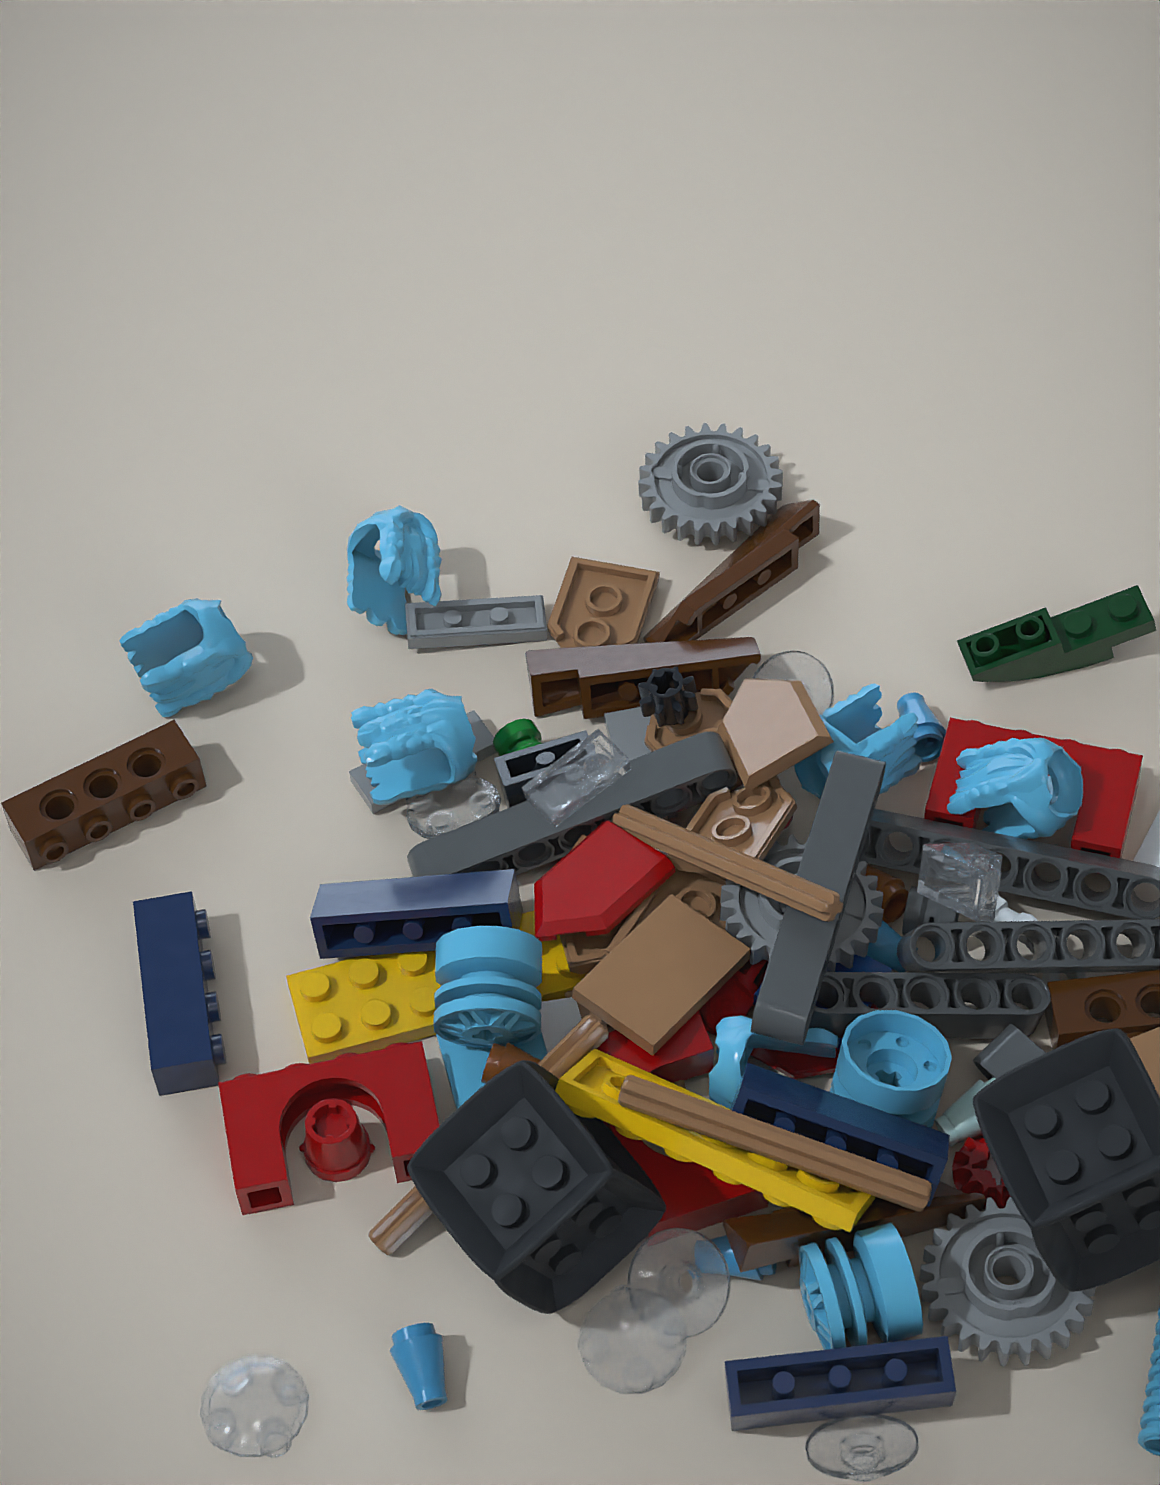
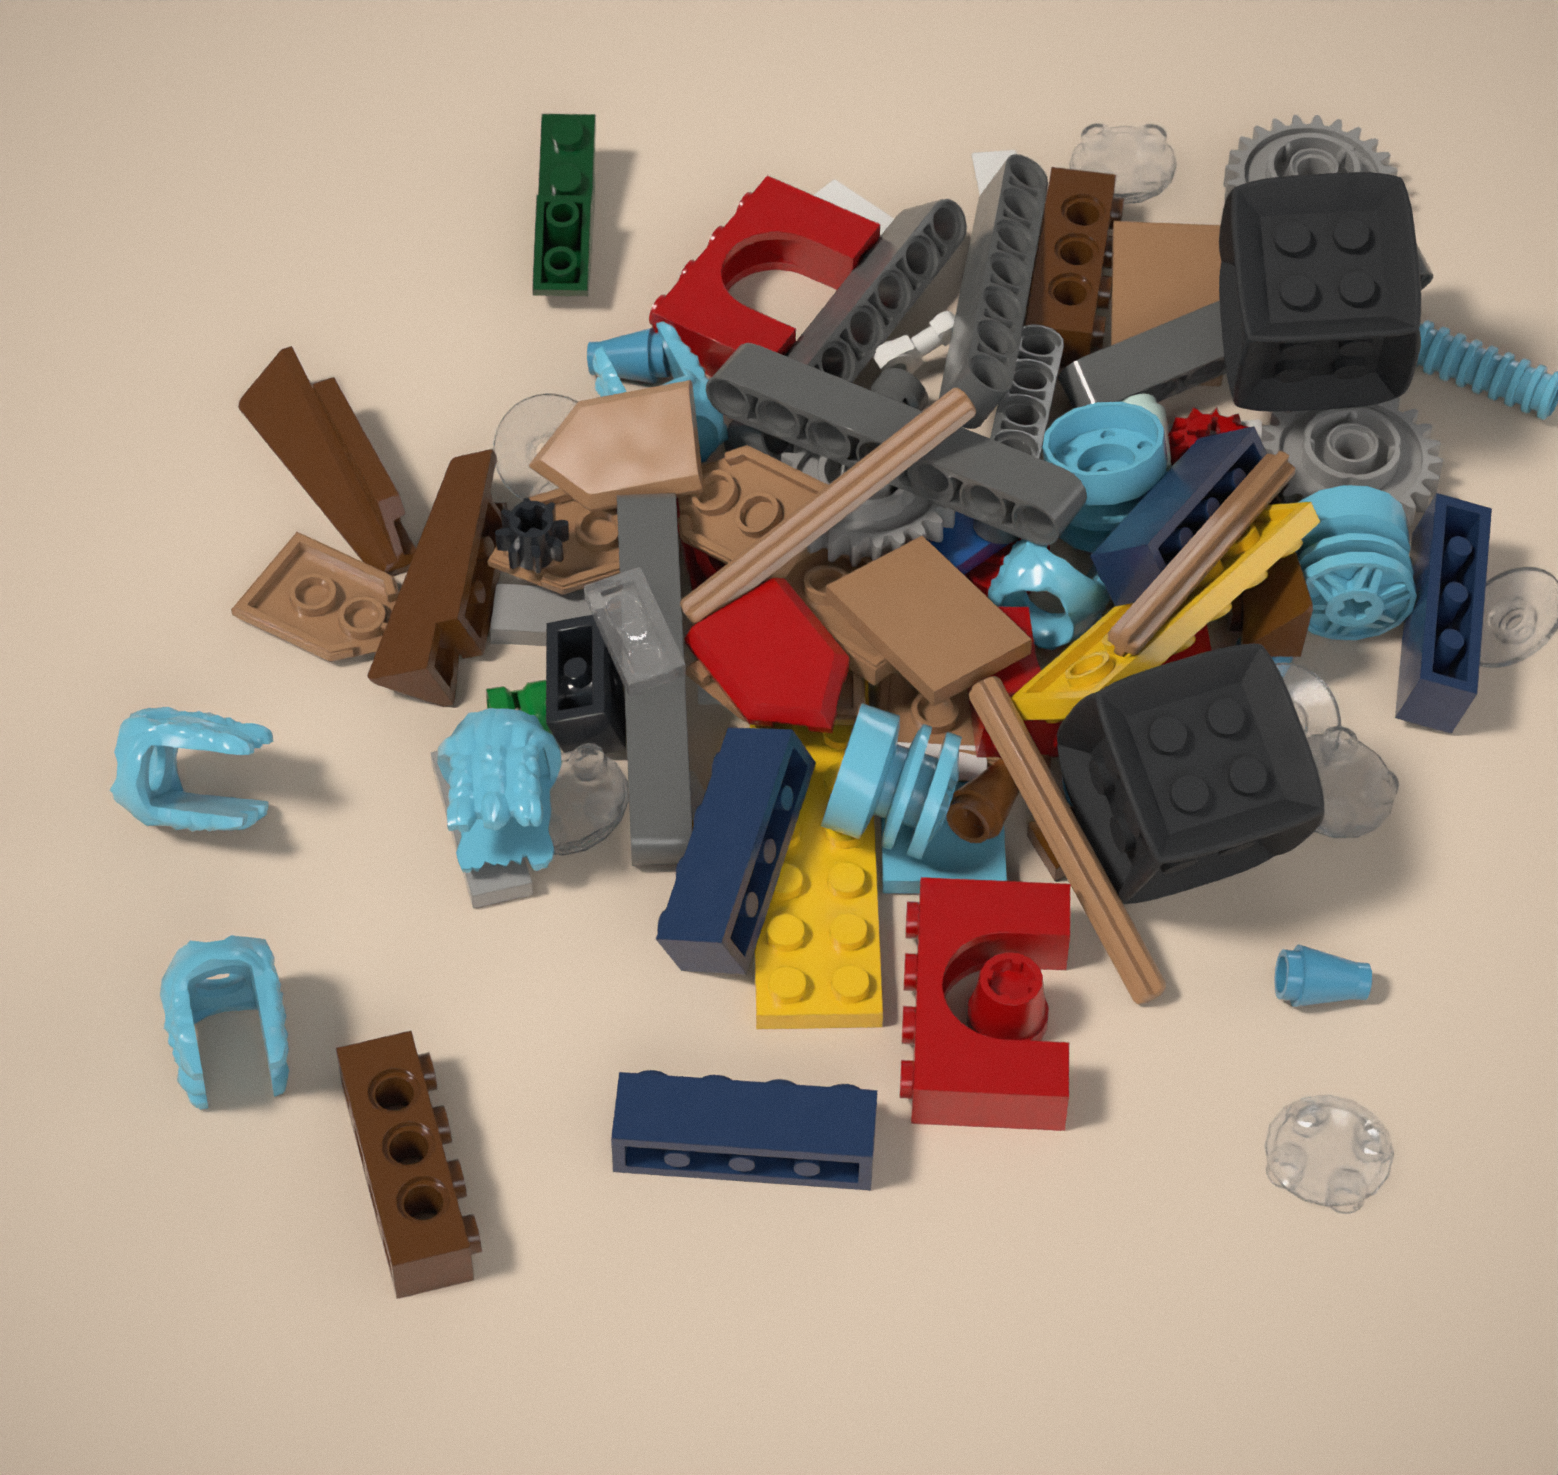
camera: 80 degrees left, 0 degrees up
(476, 622) = (294, 714): light grey tile -> none
(710, 484) = (187, 450): light grey gear -> none
(961, 878) = (902, 334): clear arch -> none
(1016, 787) = (782, 273): medium azure piece -> none

